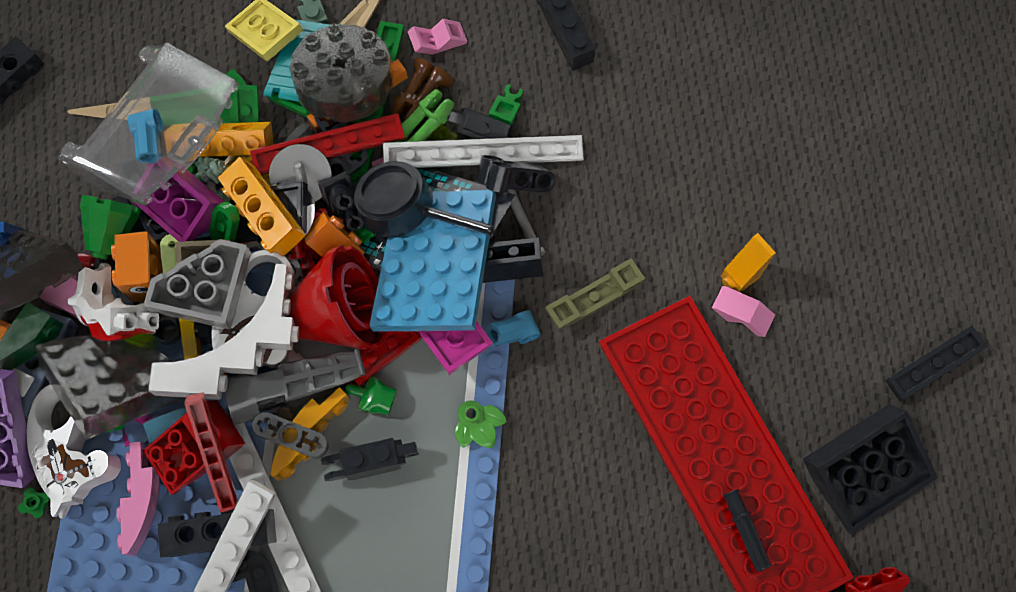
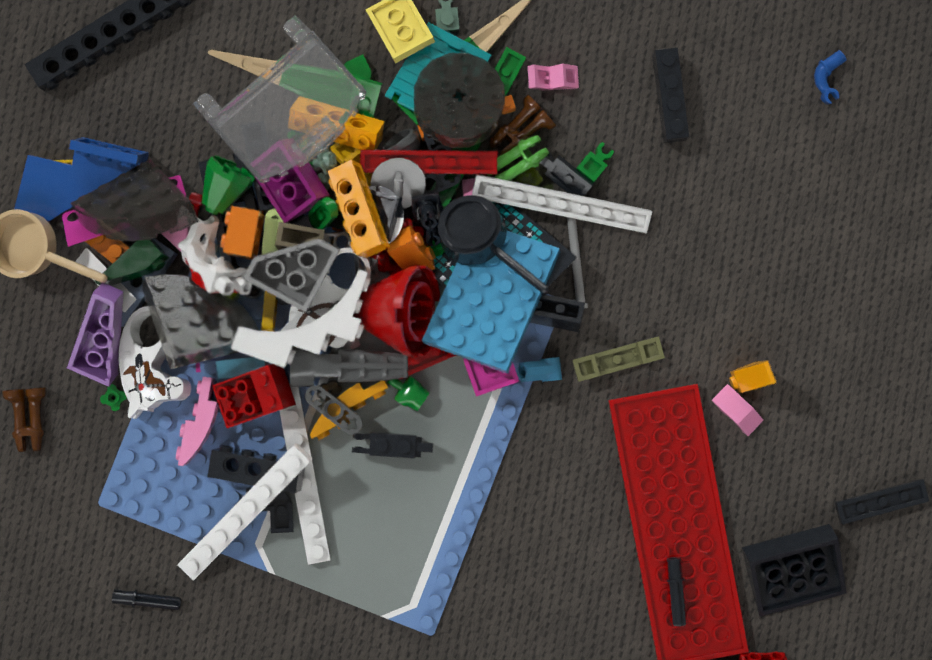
camera: 10 degrees right, 15 degrees up
(145, 129) = (278, 119): dark azure piece -> none
(211, 451) = (269, 412): red piece -> none
(481, 427) = (488, 444): bright green plate -> none
(501, 174) = (580, 235): black piece -> none

